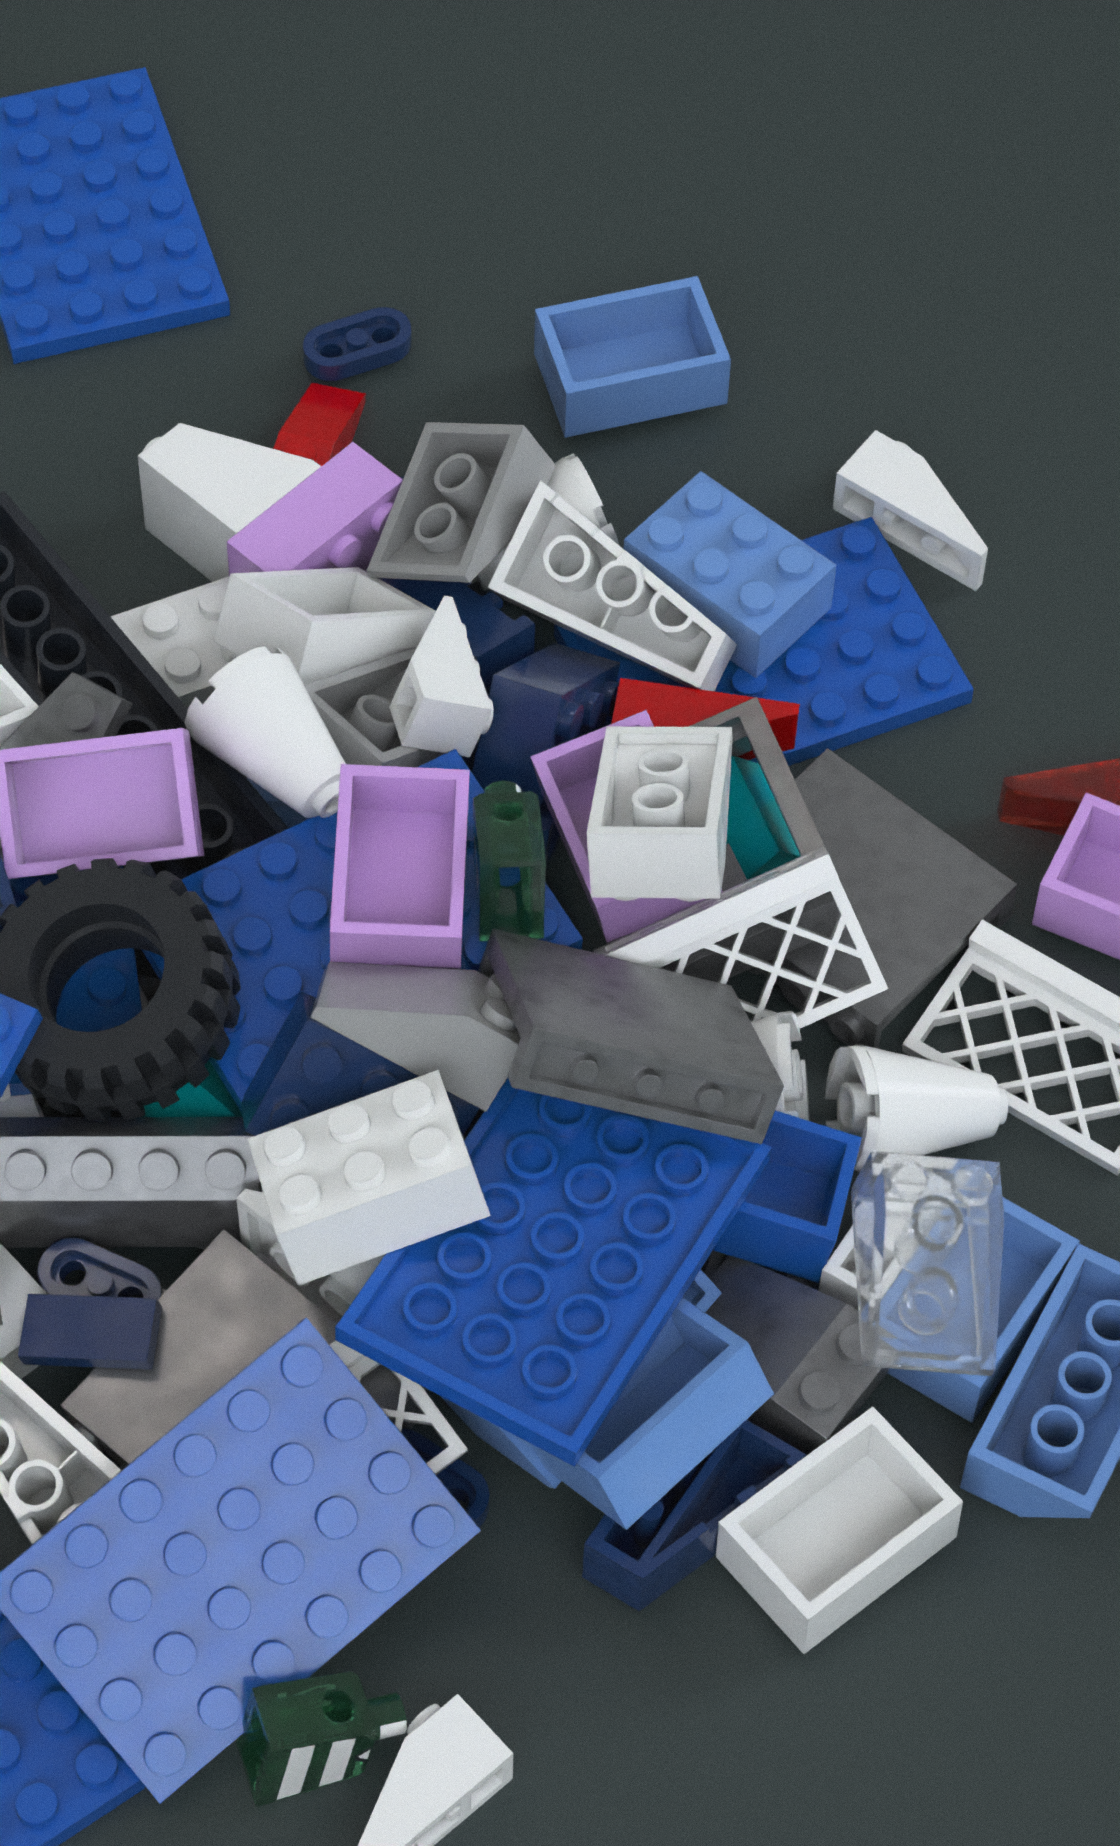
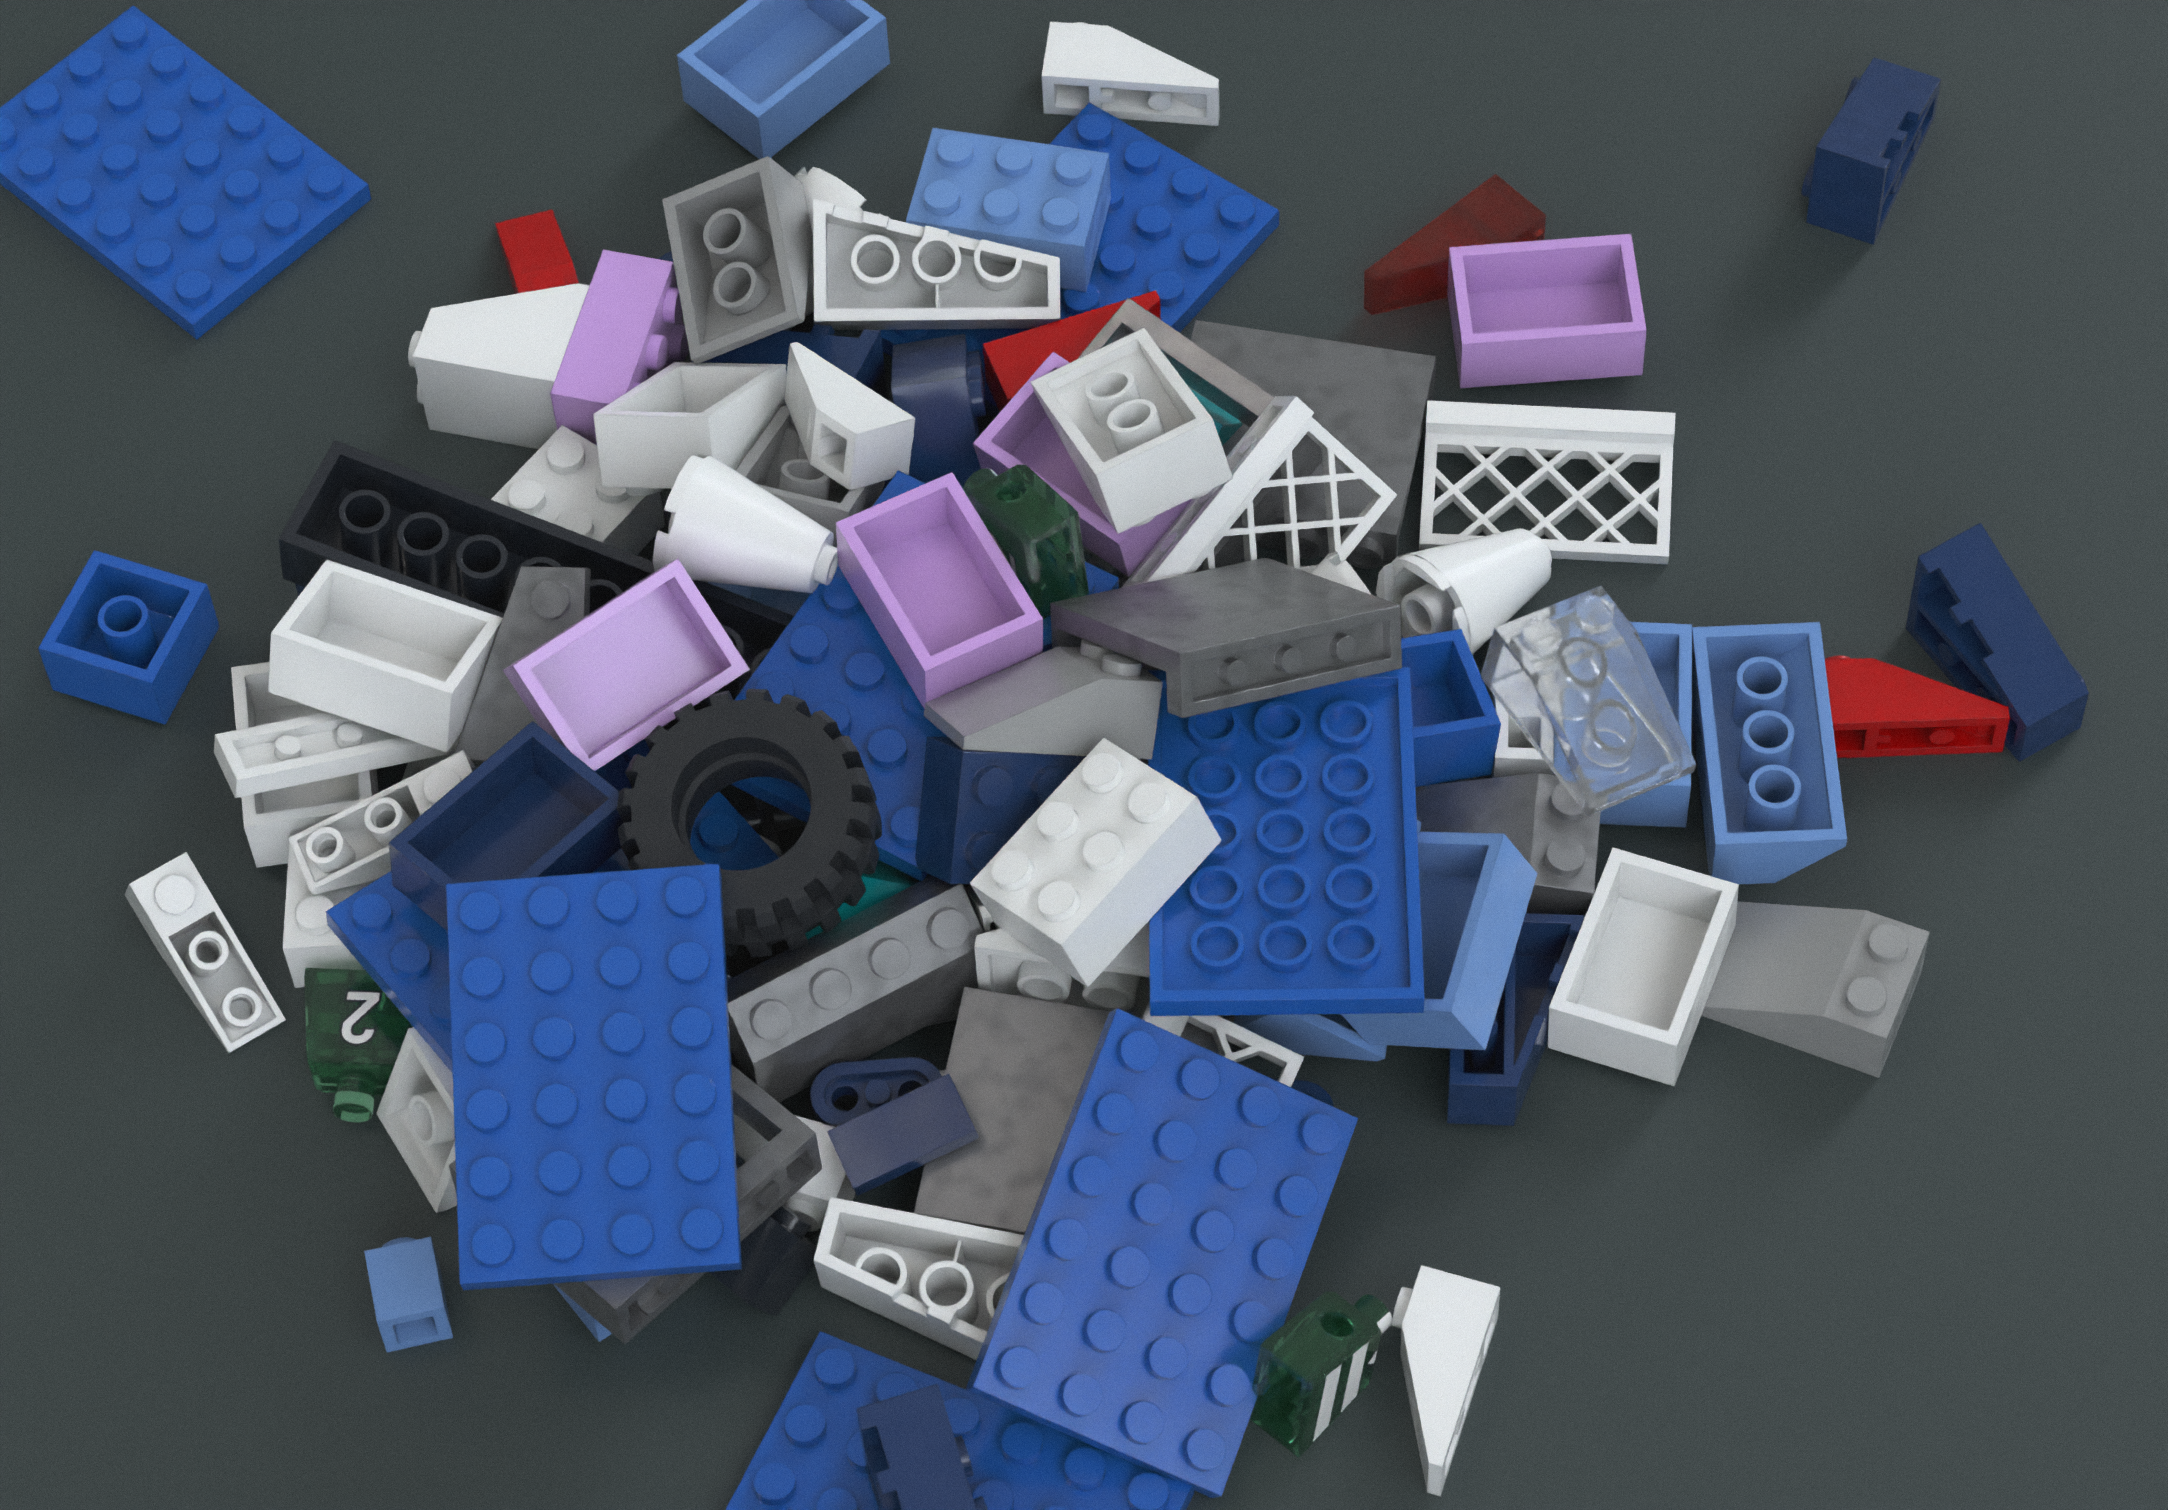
camera: 25 degrees left, 0 degrees up
(354, 345) = (508, 174): dark blue plate -> none
(998, 1630) = (1819, 980): none -> light grey slope

